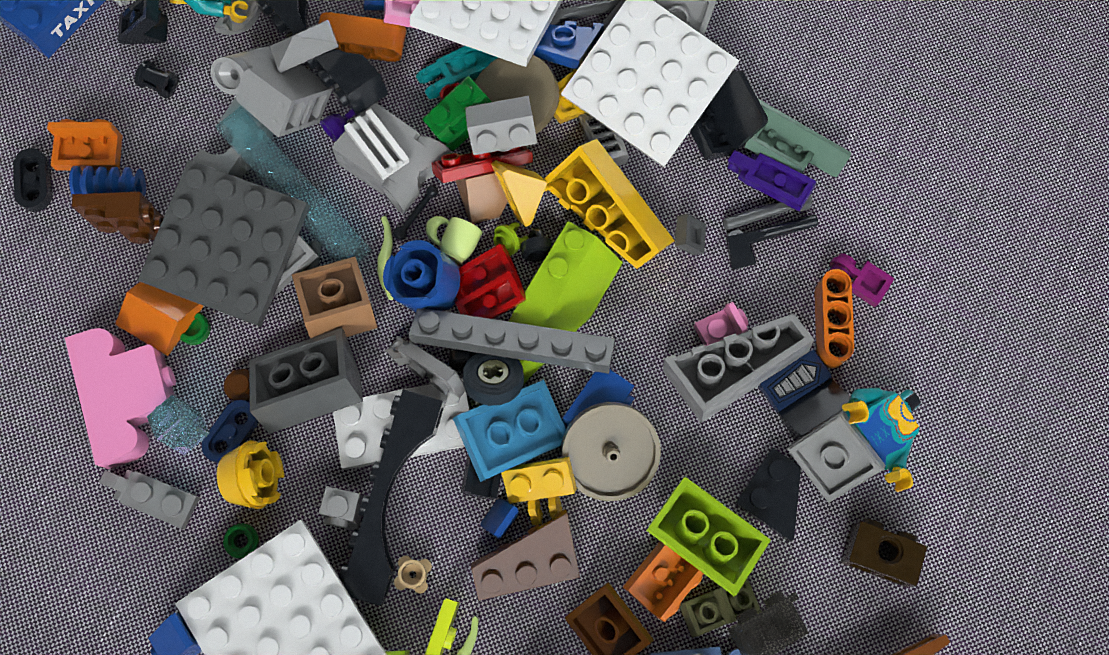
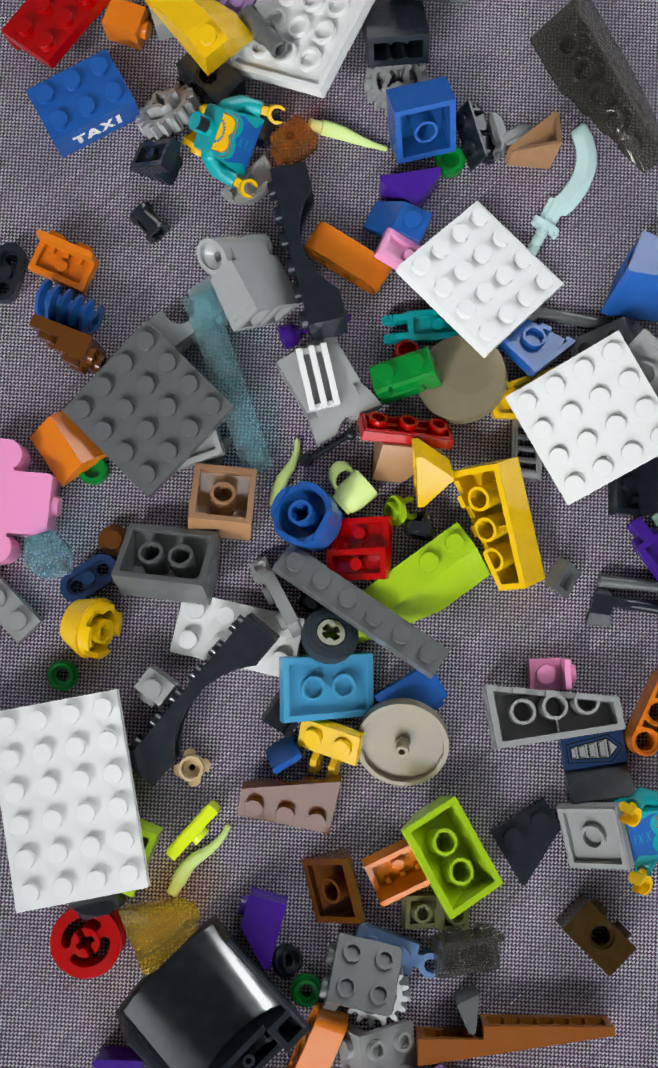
camera: 30 degrees right, 10 degrees up
(304, 46) = (291, 256): light grey slope -> none
(500, 125) = (436, 408): light grey brick -> none

